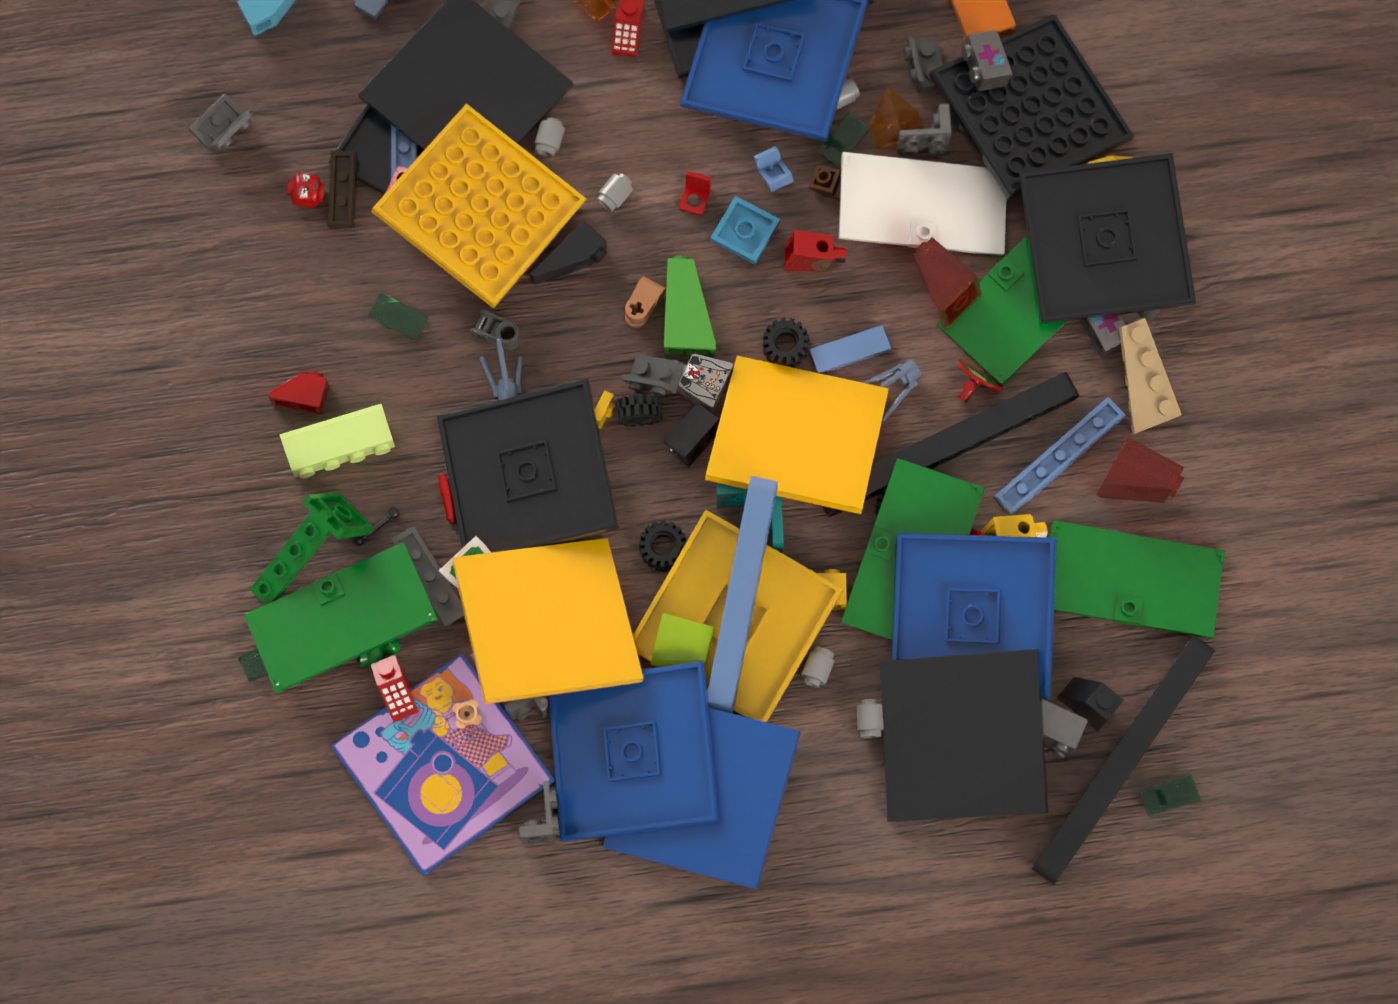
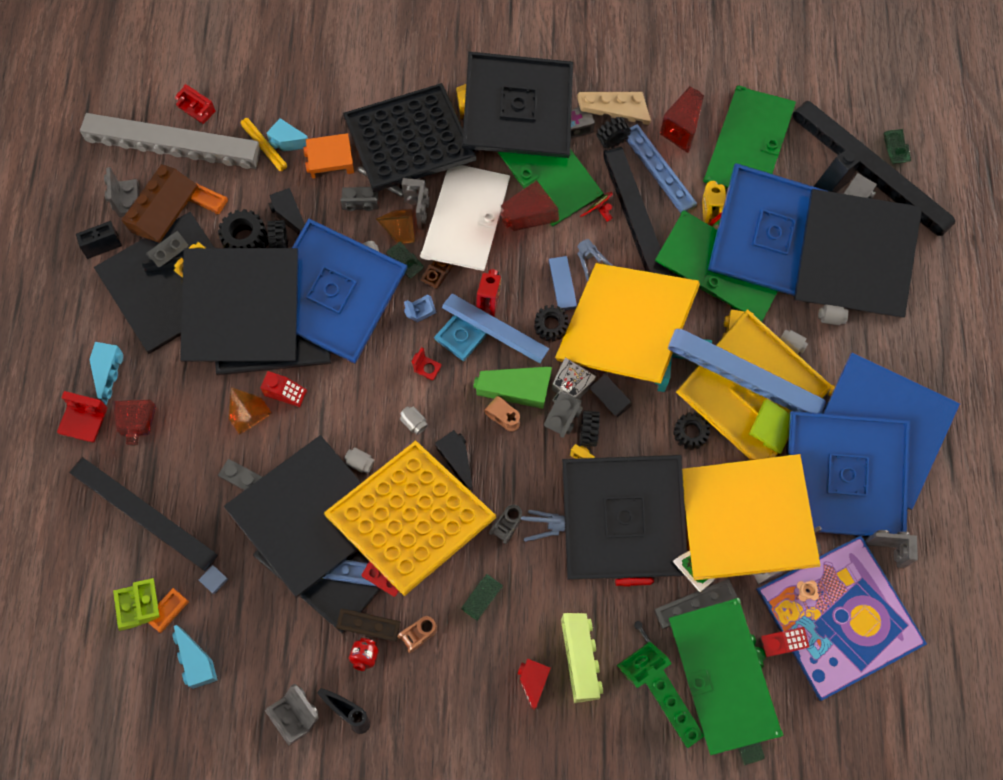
camera: 80 degrees left, 5 degrees down
(235, 184) = (346, 710): none -> black piece
(338, 246) = (417, 634): none -> nougat piece
(762, 271) = (495, 328): none -> medium blue tile
(986, 60) = (373, 151): flat silver brick -> none
(1096, 380) = (613, 132): none -> black tyre

